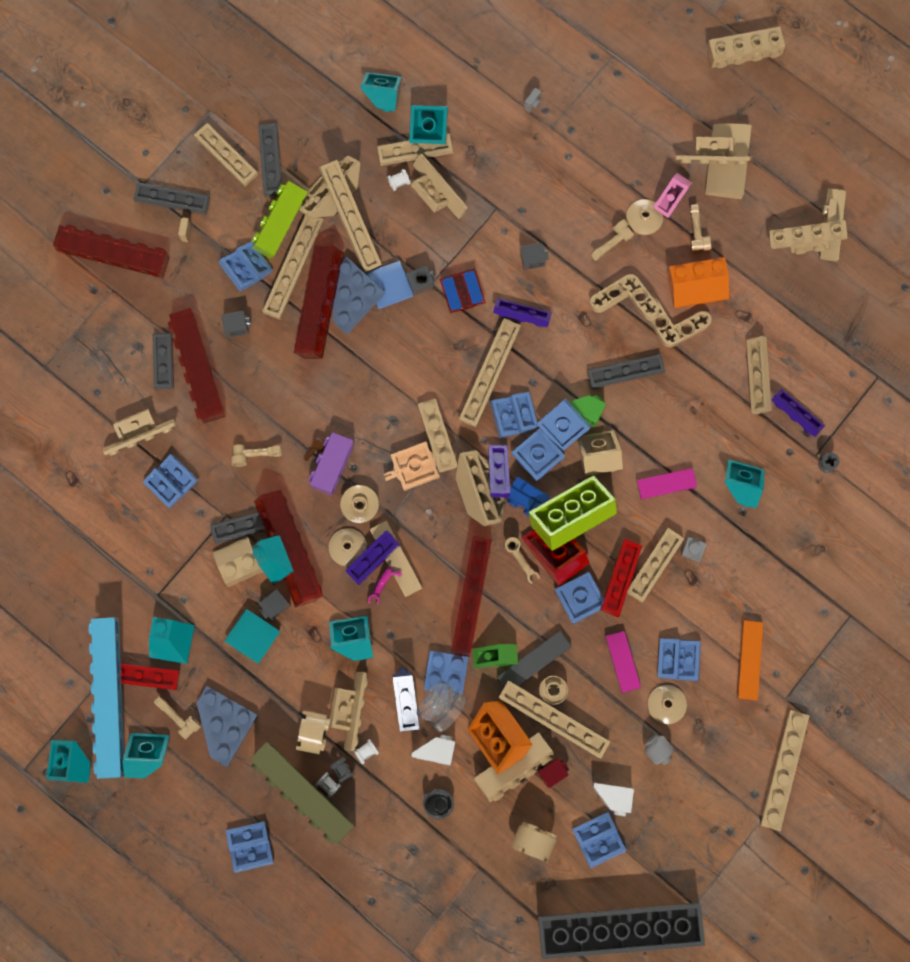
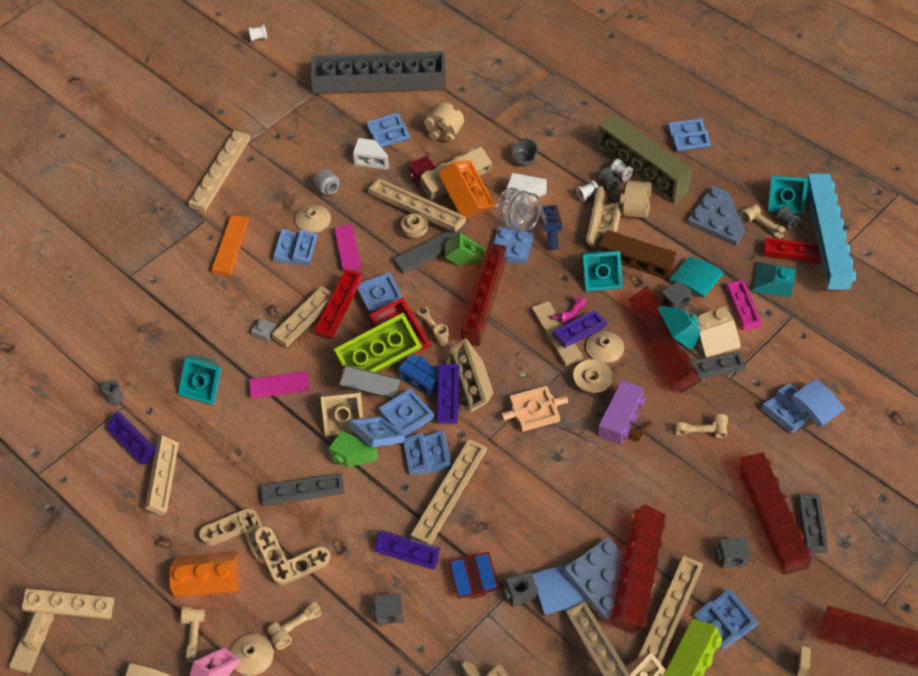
camera: 175 degrees left, 25 degrees down
(67, 762) = (859, 188): teal slope -> none
(136, 428) = (831, 450): tan bracket -> none
(144, 480) = (818, 402): none -> medium blue slope
(149, 721) = (788, 217): none -> dark grey bush
(206, 605) = (743, 305): none -> dark pink tile
(314, 661) = (640, 254): none -> reddish brown brick
(437, 435) = (510, 432): tan plate -> none
(577, 477) = (369, 381): none -> tile

